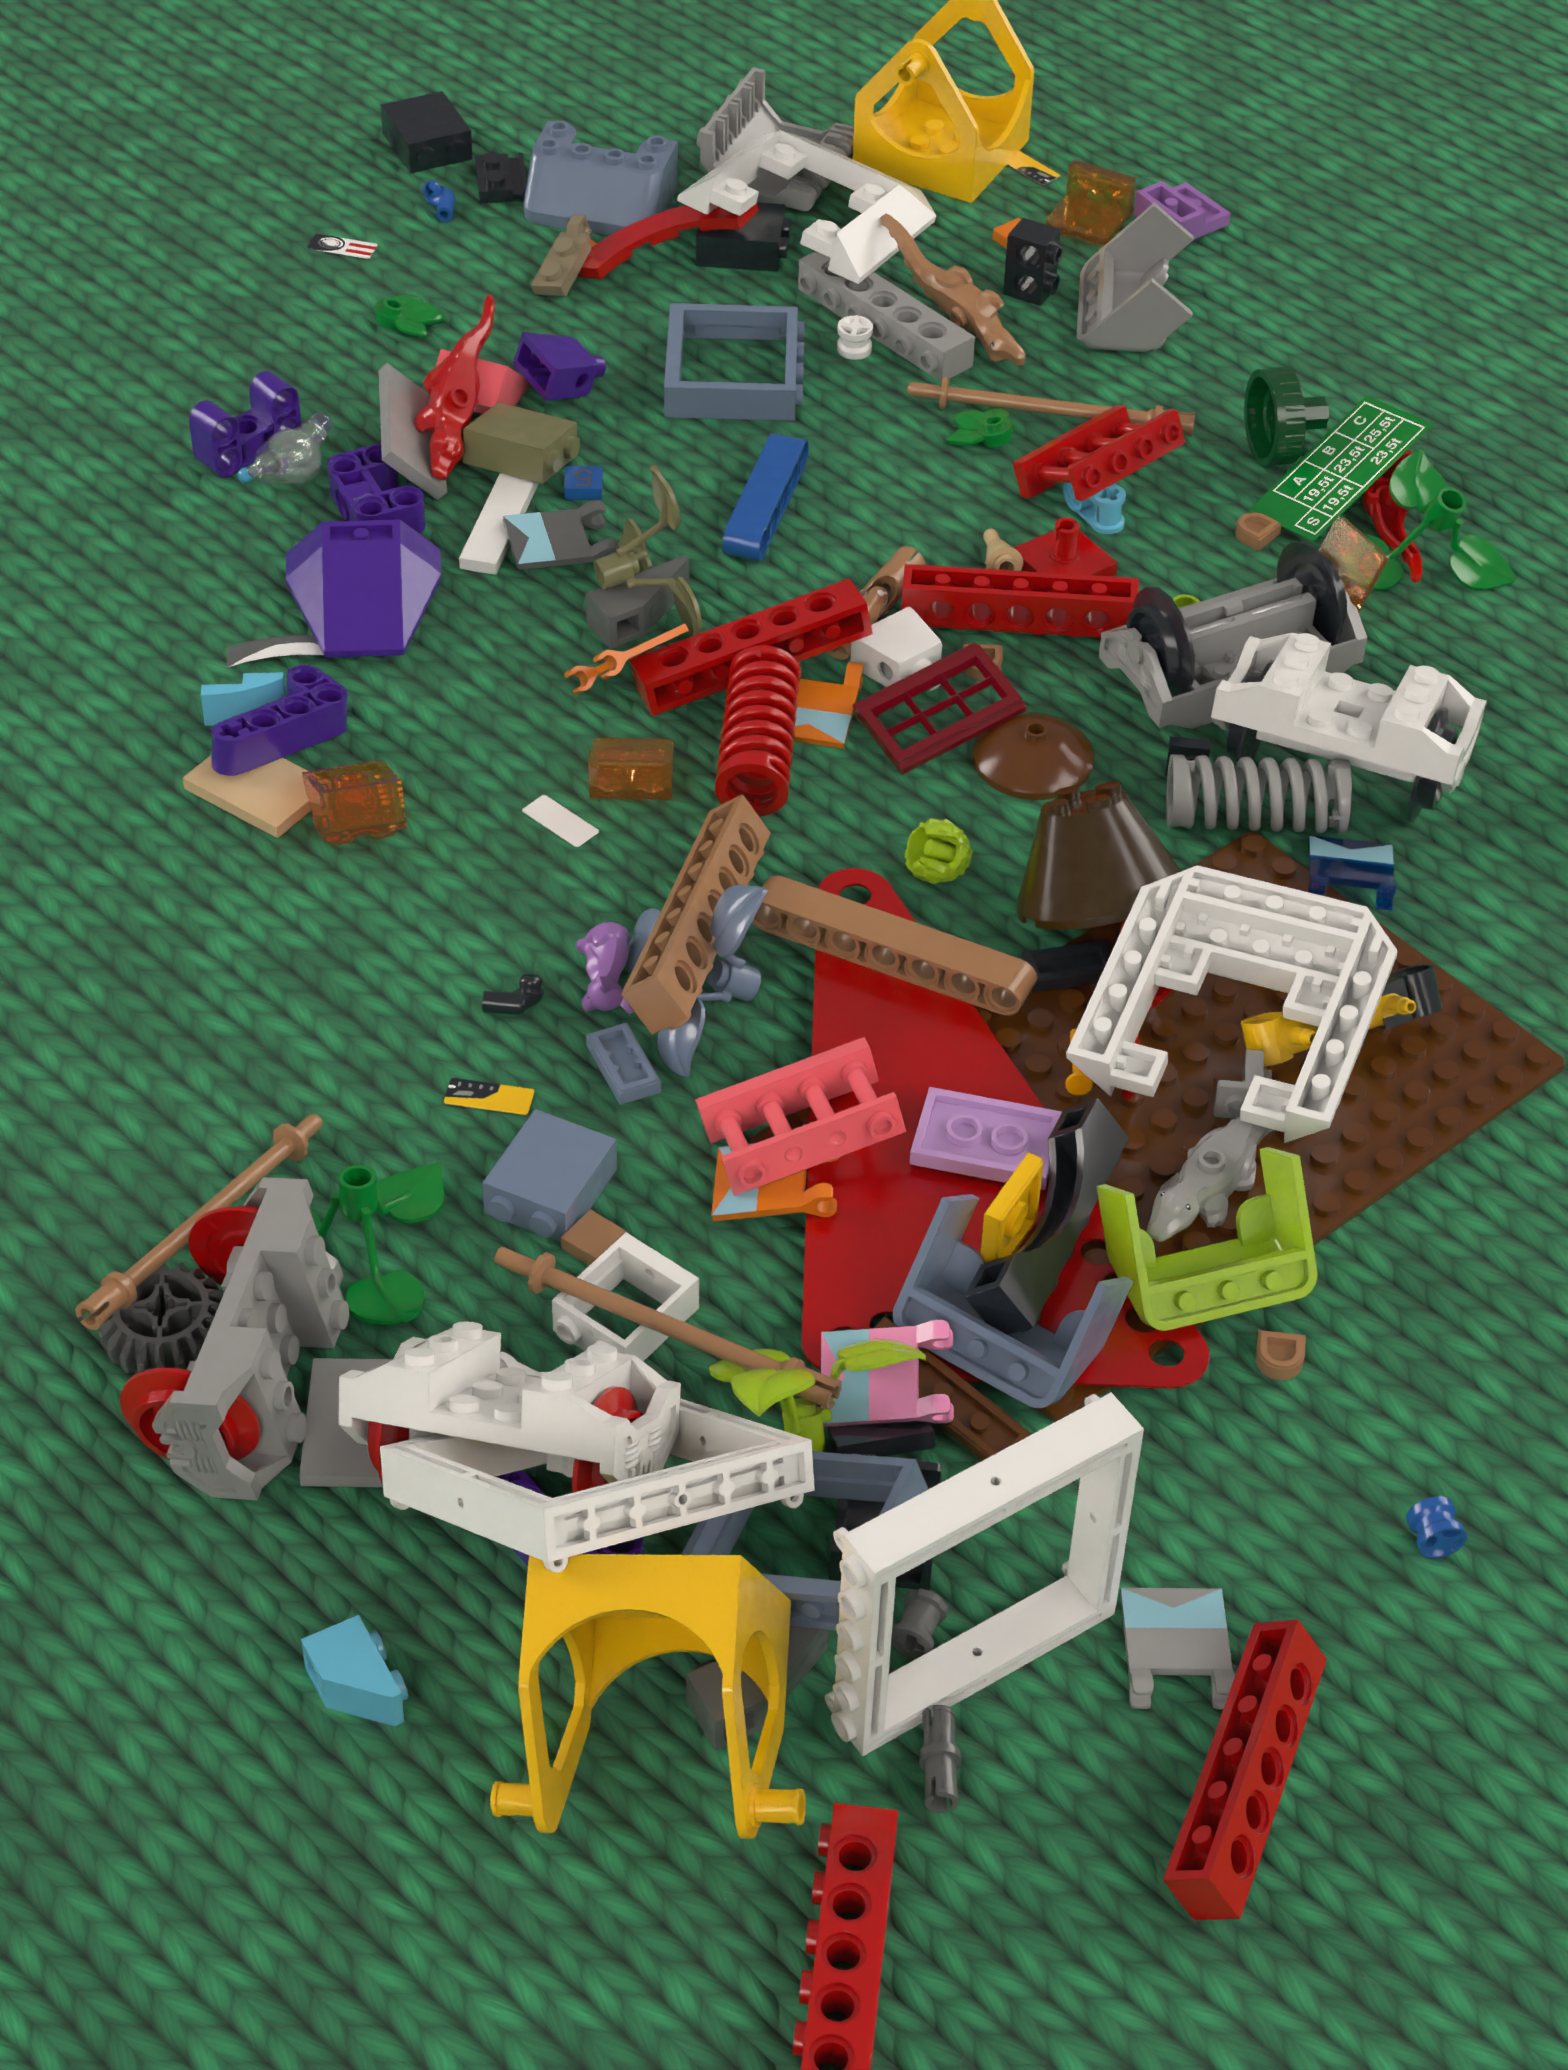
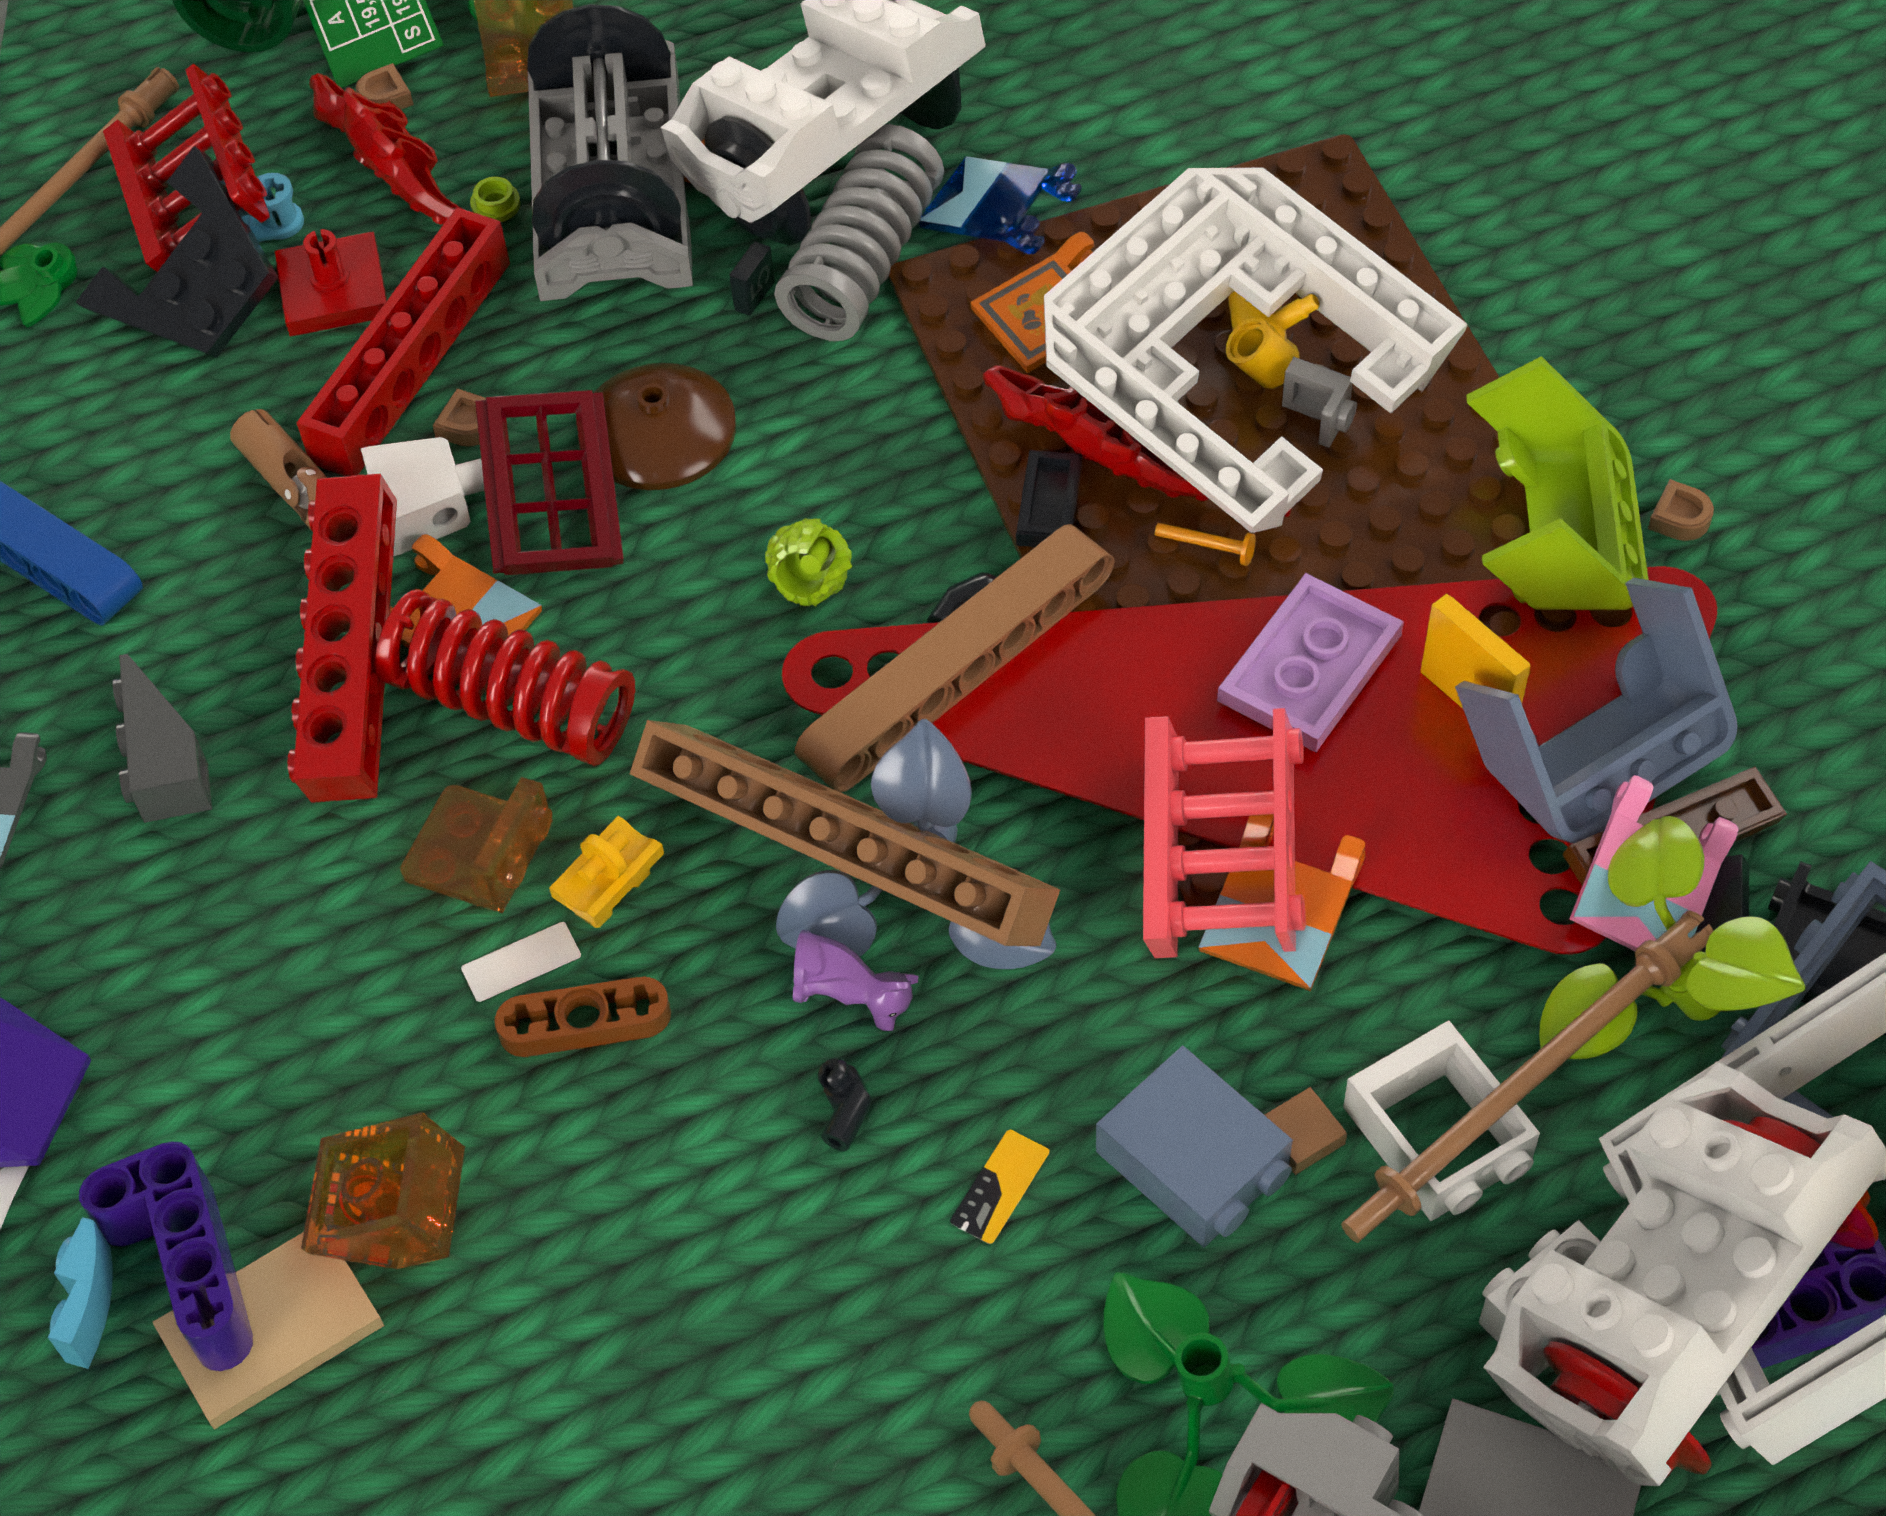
camera: 65 degrees left, 10 degrees up
(527, 872) = (562, 1001): none -> dark orange beam
(615, 660) = (275, 775): orange flag -> none
(623, 1063) = (1018, 1009): sand blue plate -> none
(632, 556) = (121, 724): olive plant -> none
(633, 826) = (606, 871): none -> yellow hips
(1000, 554) = (299, 337): tan cone -> none
(1020, 494) = (206, 281): none -> black wing
(1081, 1156) = (1406, 585): black arch -> none
(1089, 860) = (956, 411): dark brown cone -> none
(1196, 539) = (383, 145): none -> red animal
(1210, 1174) = (1429, 470): light grey animal -> none

